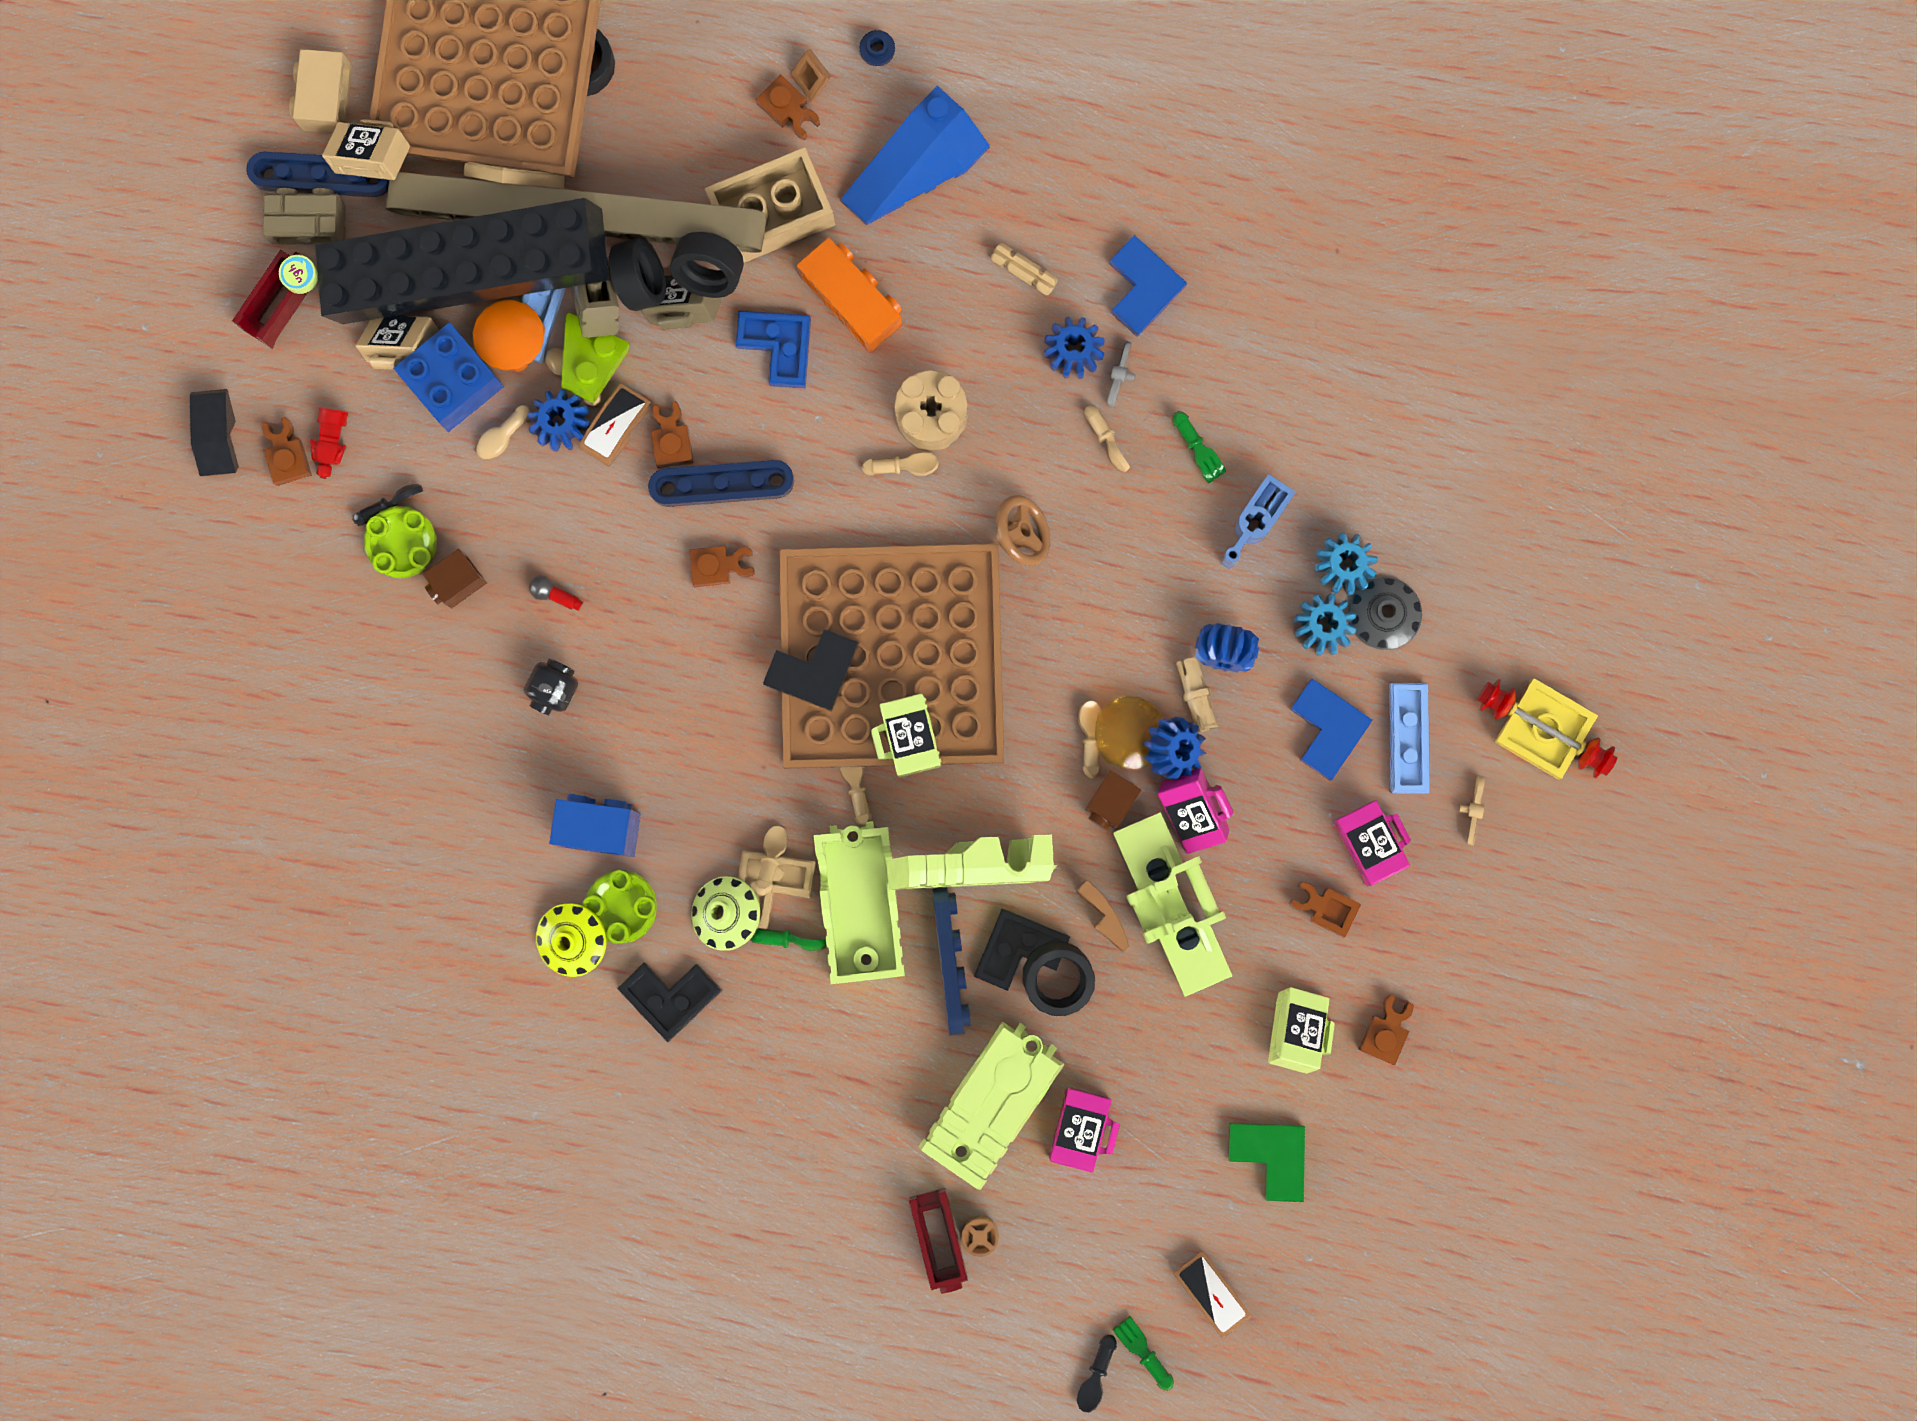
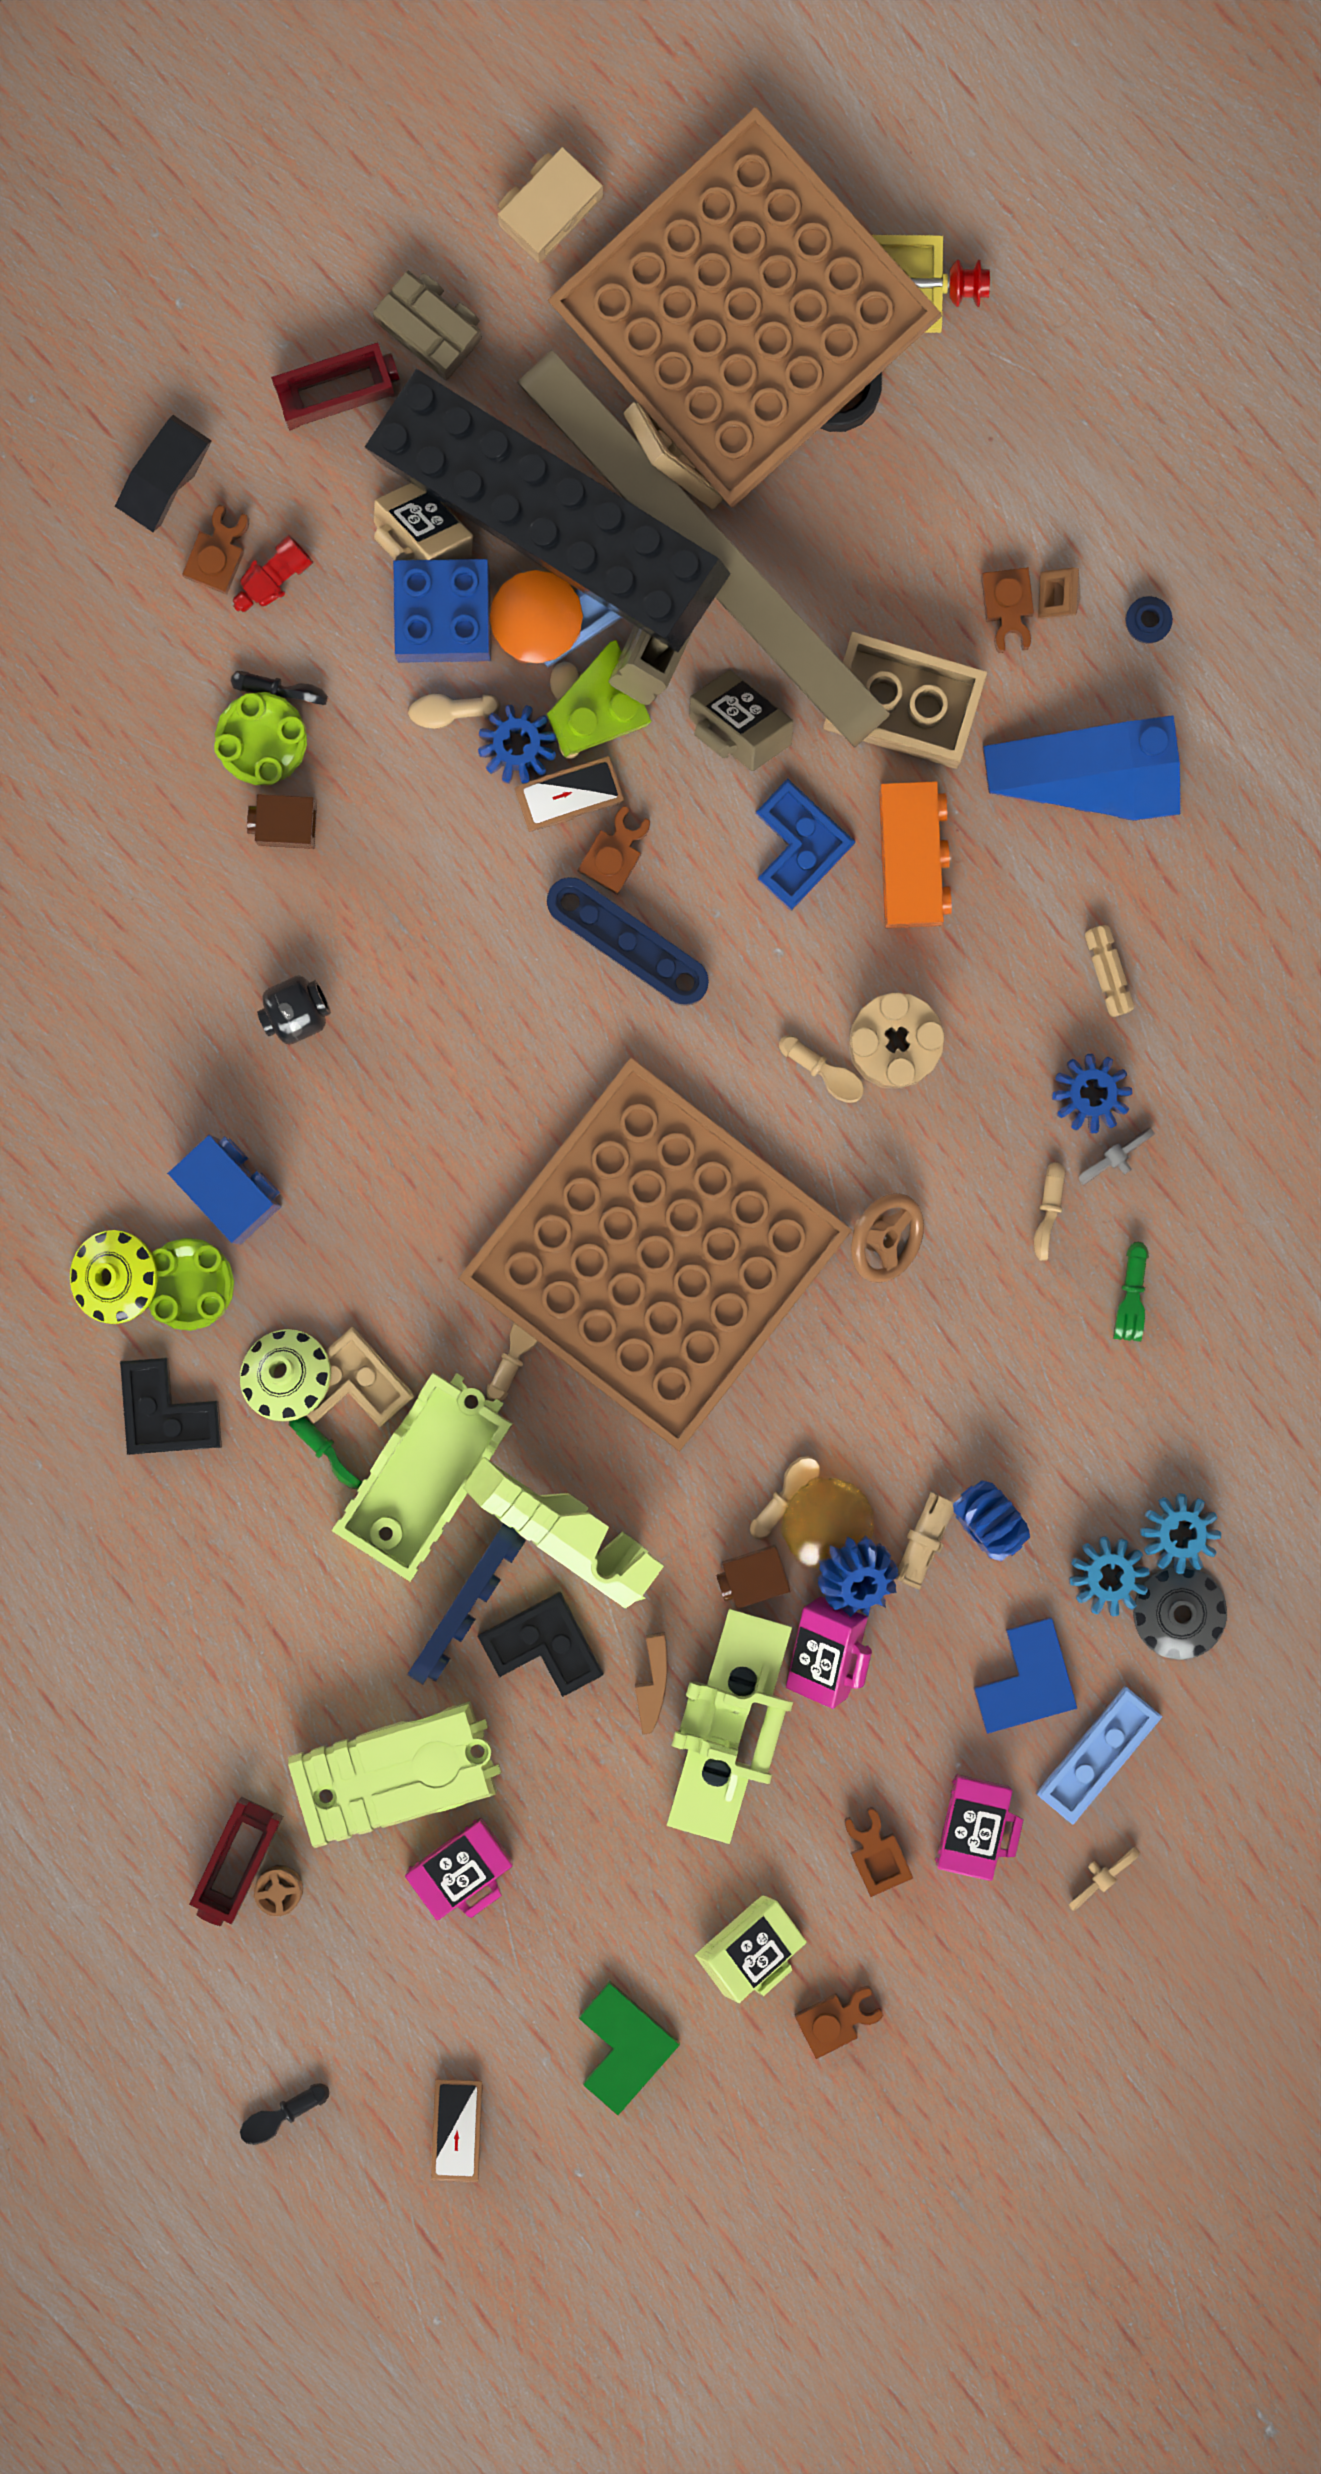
camera: 35 degrees right, 5 degrees up
(298, 274) = (375, 385): yellowish green tile -> none
(306, 173) = (479, 288): dark blue plate -> none
(366, 149) = (547, 308): tan piece -> none
(543, 589) = (366, 903): piece -> none
(637, 274) = (713, 664): black tyre -> none
(711, 249) = (789, 717): black tyre -> none
(712, 565) = (553, 1018): dark orange plate -> none
(773, 845) = (386, 1348): tan piece -> none
(814, 681) = (563, 1222): black tile -> none
(908, 735) = (605, 1351): piece -> none
(1066, 1005) = (546, 1739): black tyre -> none
(1136, 1343) = (345, 2114): green piece -> none
(1153, 285) = (1226, 1094): blue tile -> none
(1256, 510) = (1142, 1423): medium blue piece -> none
(1546, 729) = (1240, 1857): light yellow plate -> none

